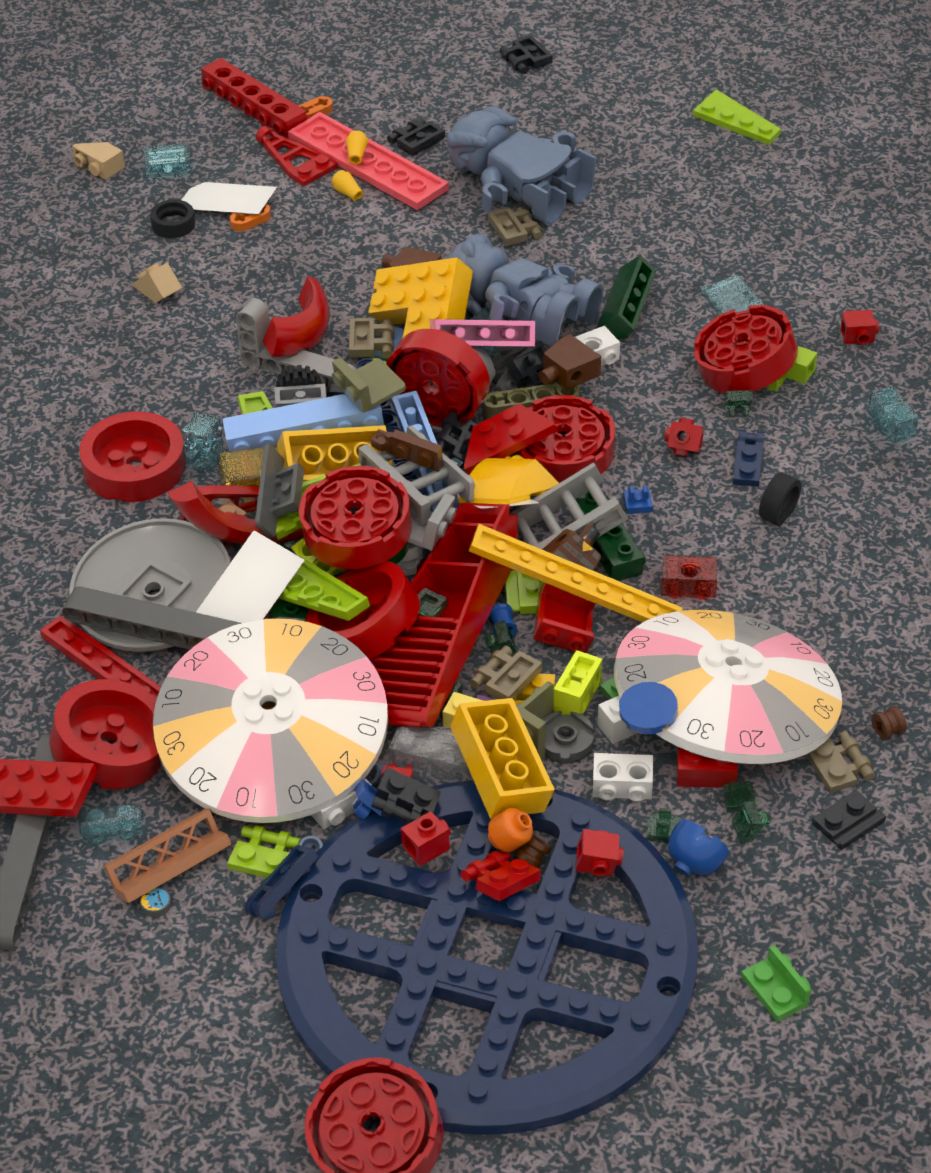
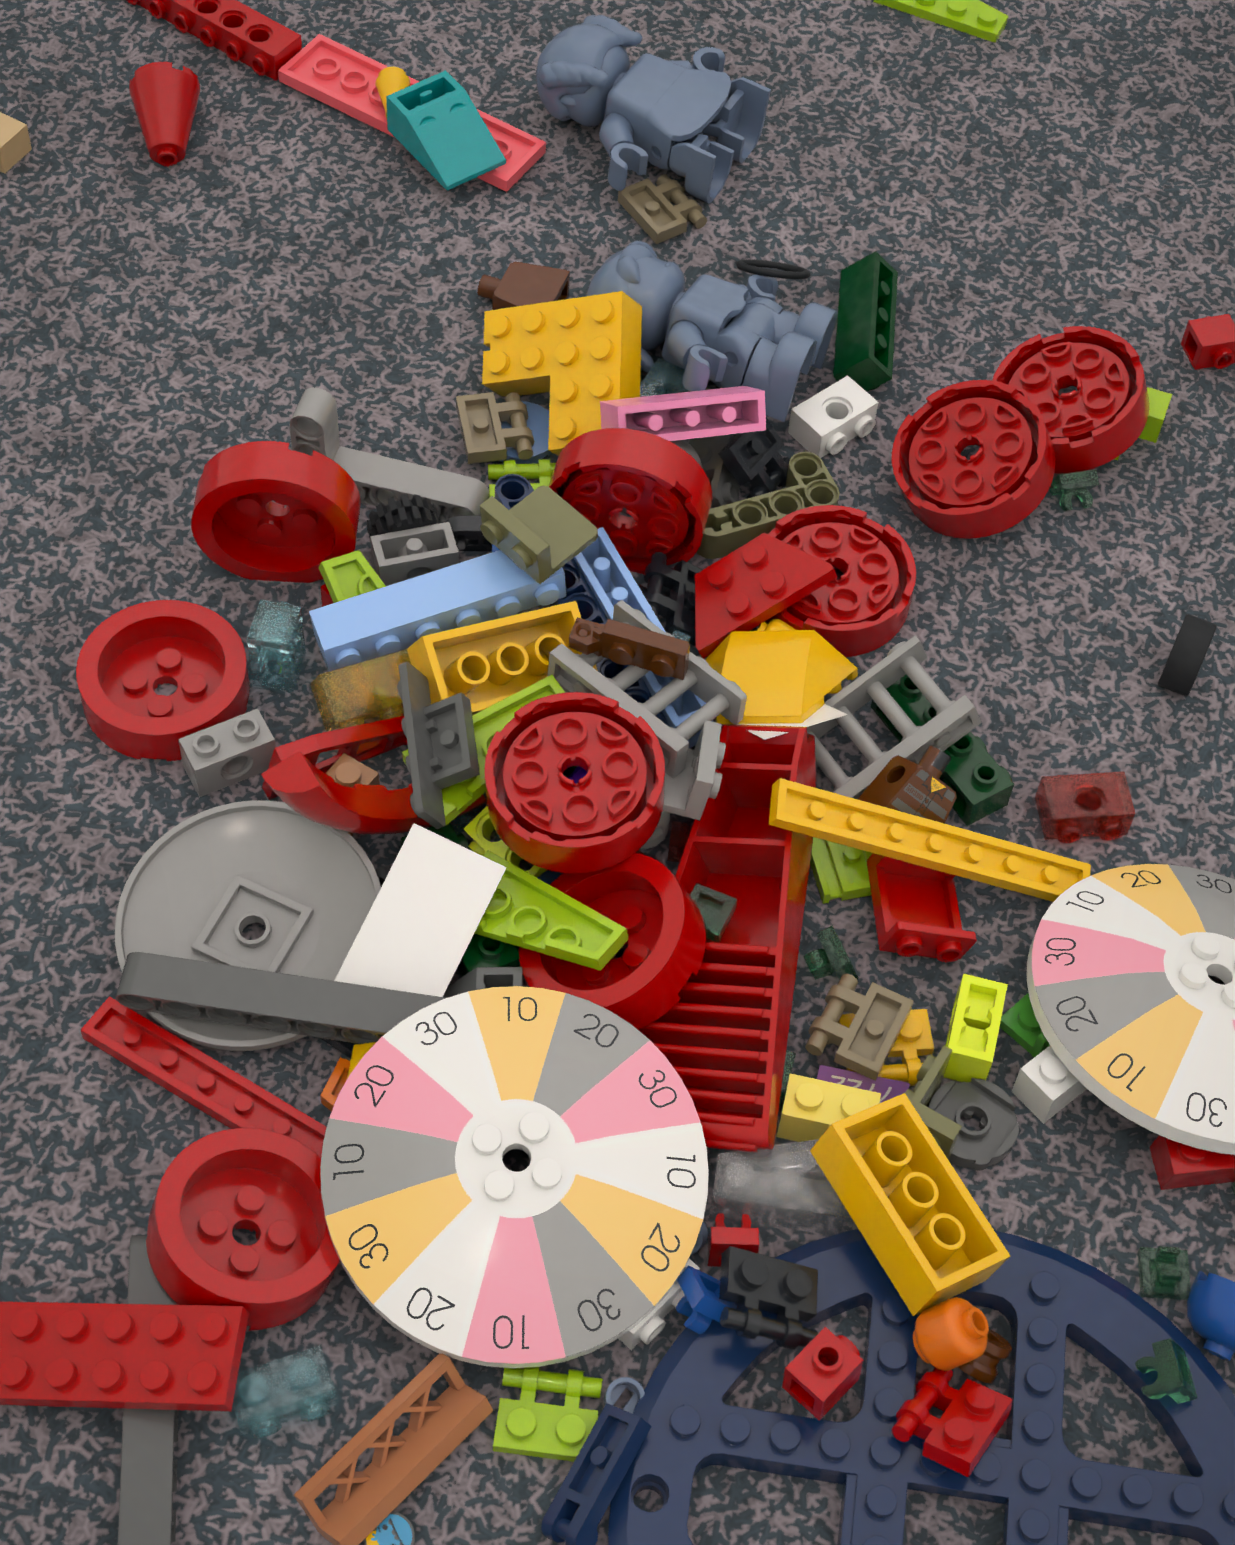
camera: 15 degrees left, 10 degrees up
(152, 497) = (227, 752): none -> light grey brick
(157, 282) = (133, 355): tan slope -> none
(167, 160) = (99, 134): clear light blue brick -> none
(172, 229) = (130, 256): black tyre -> none
(211, 147) = (165, 109): none -> red cone
(212, 385) = (261, 538): none -> red brick
(229, 197) = (207, 193): white sticker -> none
(245, 221) = (251, 223): orange beam -> none
(301, 331) = (386, 432): red brick -> none
(304, 174) = (318, 141): red plate -> none
(319, 104) = (311, 23): orange beam -> none
(345, 184) = (389, 157): yellow cone -> none
(380, 169) = (443, 130): none -> teal slope
(416, 135) = (482, 65): black plate -> none
(503, 612) = (821, 915): blue bush -> none
(570, 363) = (819, 450): reddish brown torso -> none
(577, 264) = (790, 271): none -> black piece
(598, 852) = (1097, 1356): red brick -> none
(623, 776) = (1077, 1179): white brick -> none
(637, 500) = (968, 675): blue tile -> none
(641, 867) = (1173, 1372): none -> clear green tile
(648, 707) = (1120, 1083): blue tile -> none
(683, 390) = (997, 483): none -> red brick
(693, 440) = (1027, 564): red brick -> none
(730, 294) = (1010, 308): clear light blue door -> none
(748, 458) = (1112, 582): dark blue plate -> none

